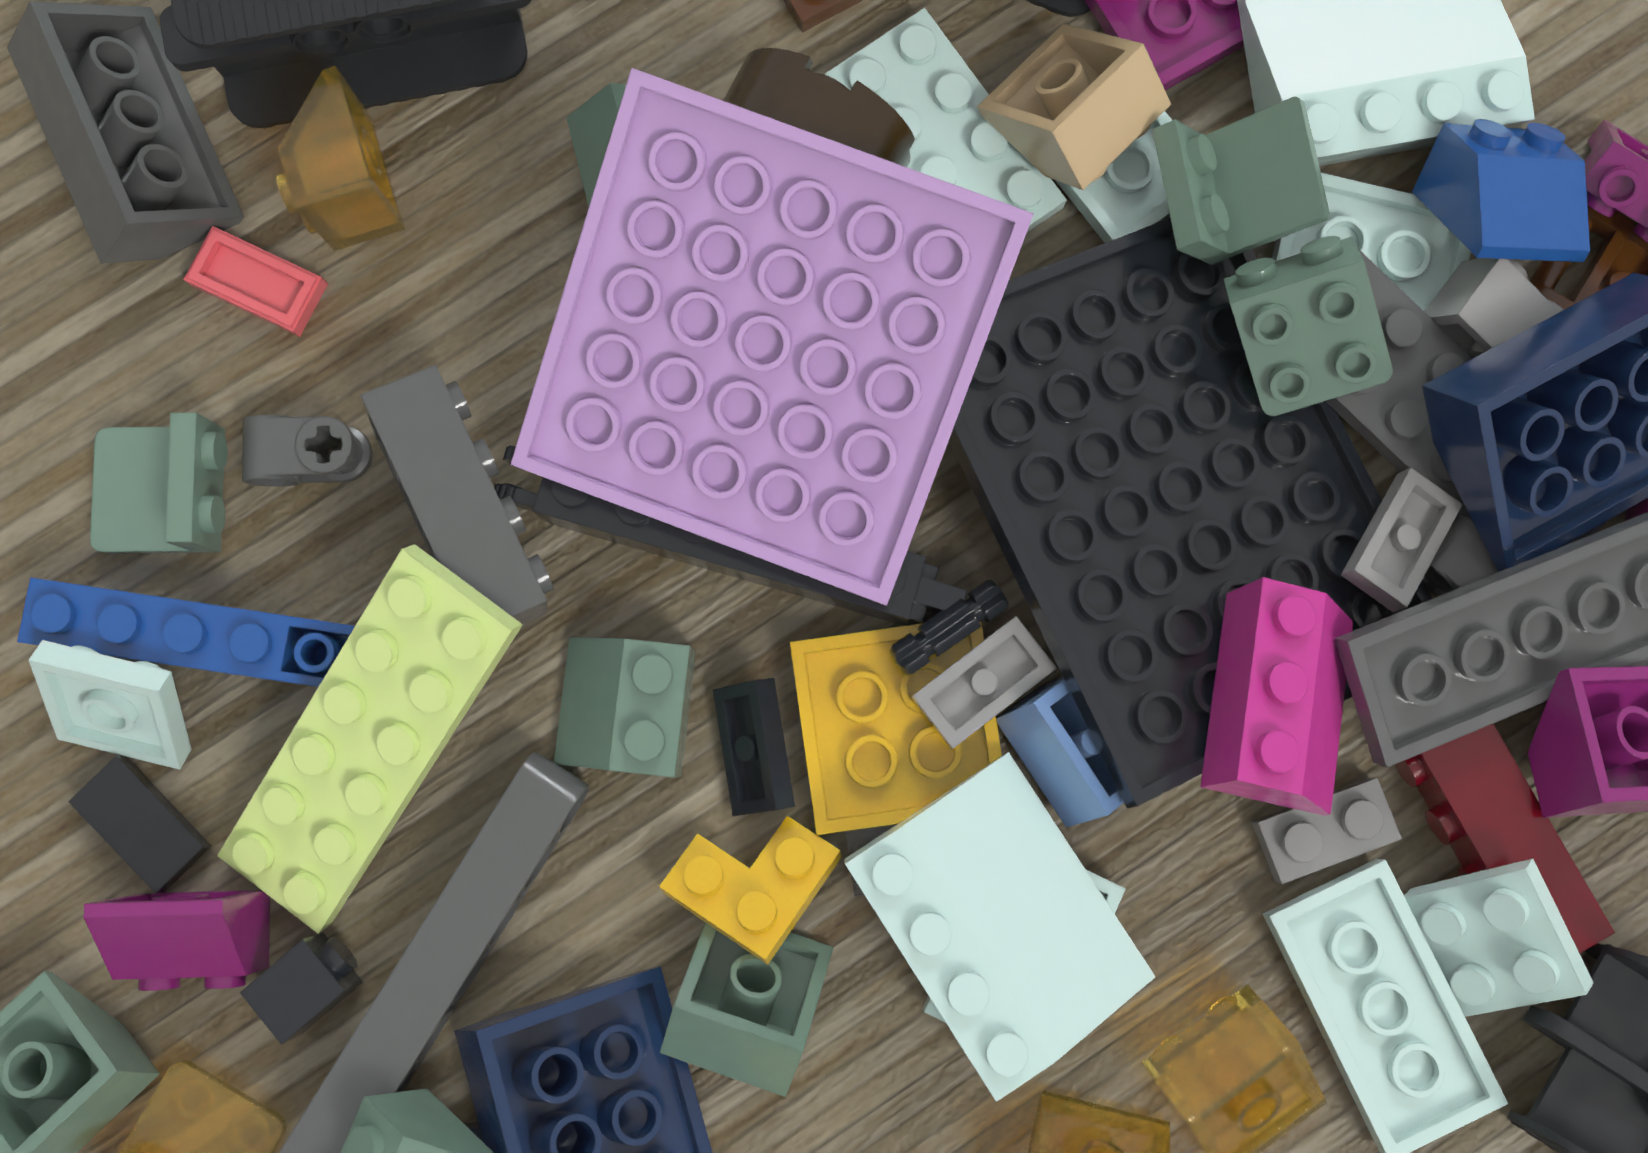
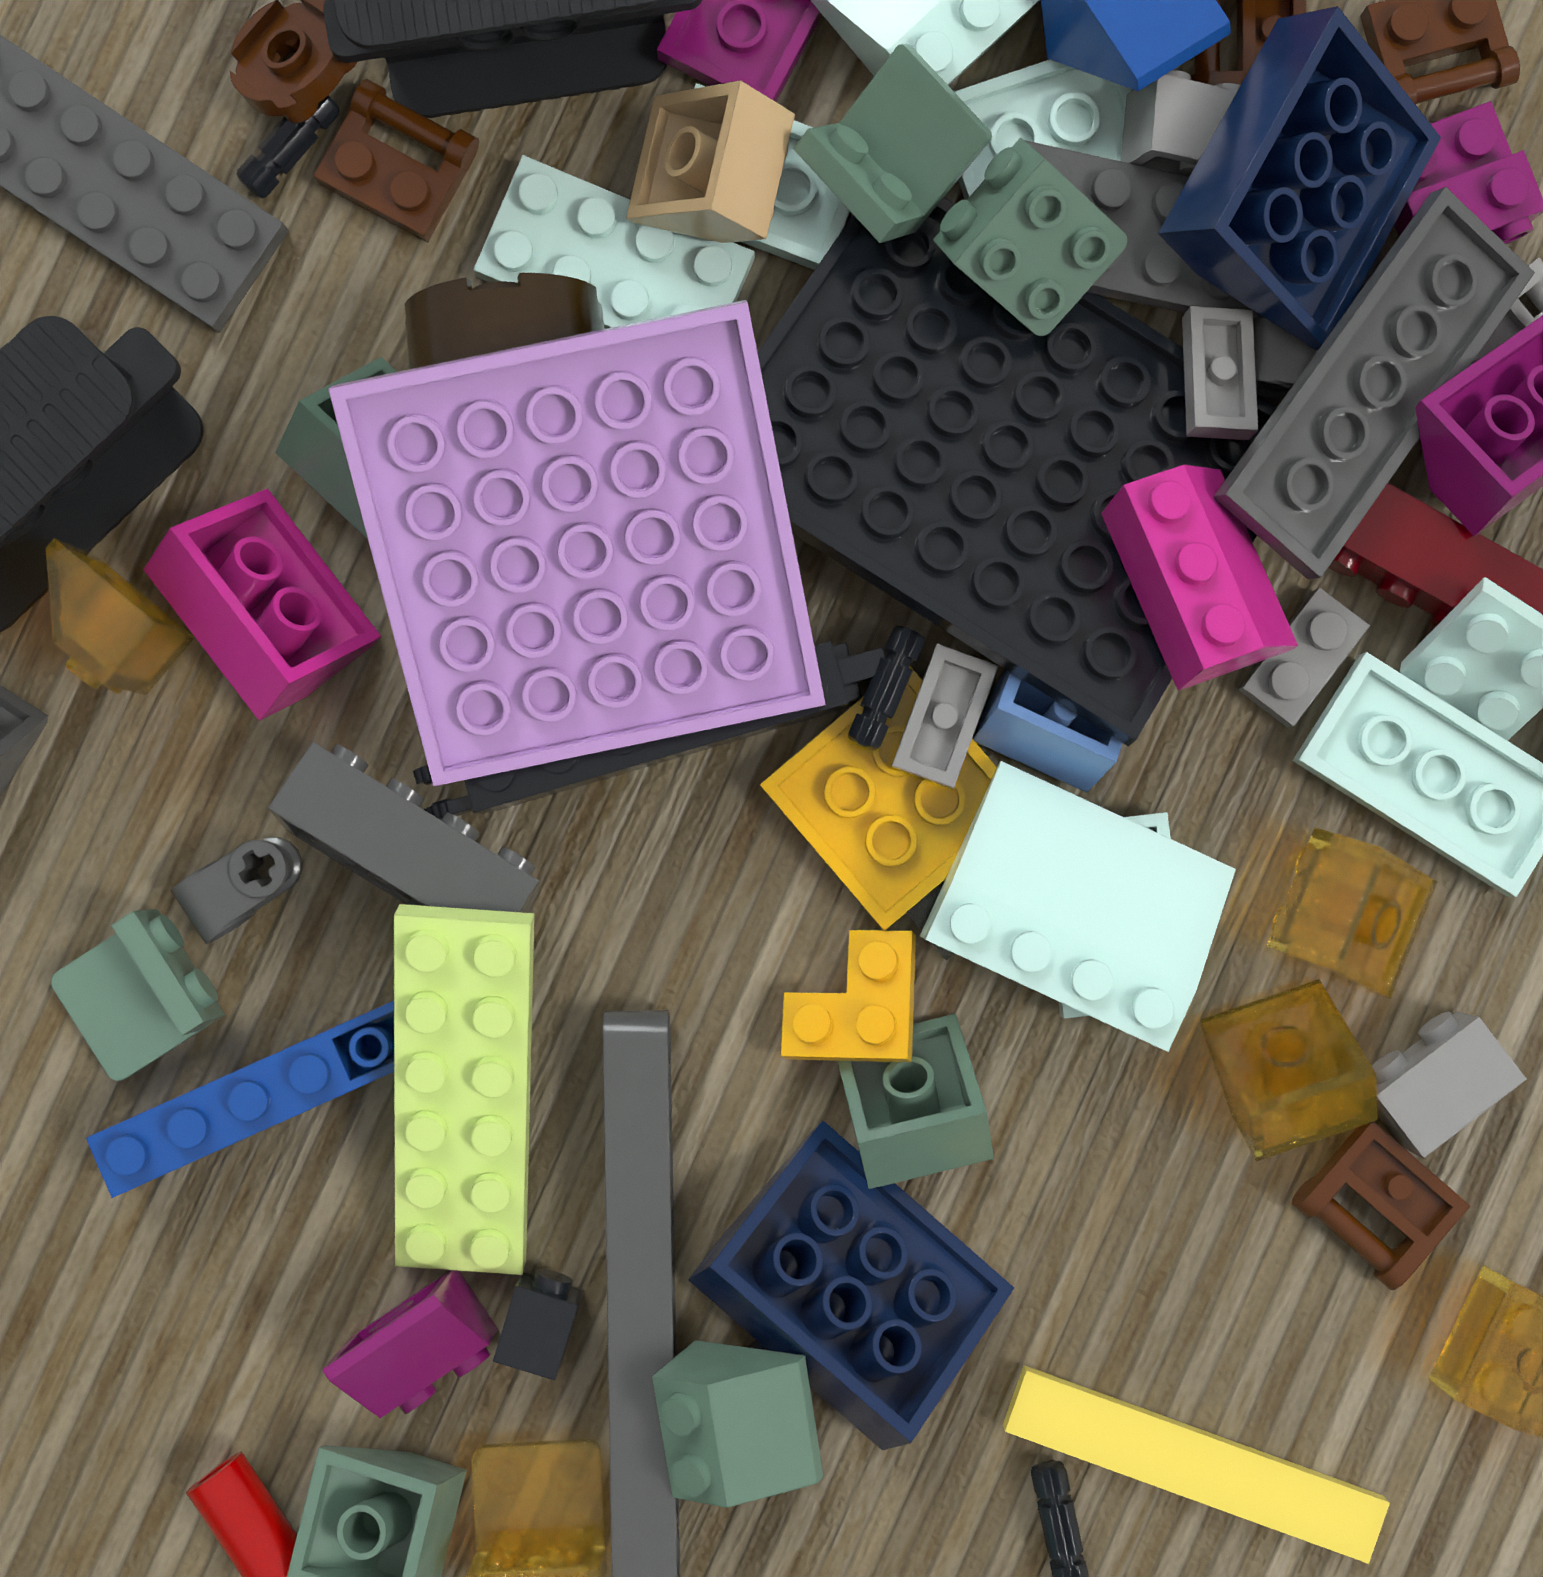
camera: 30 degrees left, 5 degrees up
(111, 703) = (225, 1198): light aqua plate -> none
(140, 824) = (311, 1281): black tile -> none
(256, 281) = (97, 765): coral tile -> none
(474, 231) = (260, 601): none -> dark pink slope
(625, 705) = (654, 926): sand green slope -> none
(753, 747) = (785, 891): black plate -> none

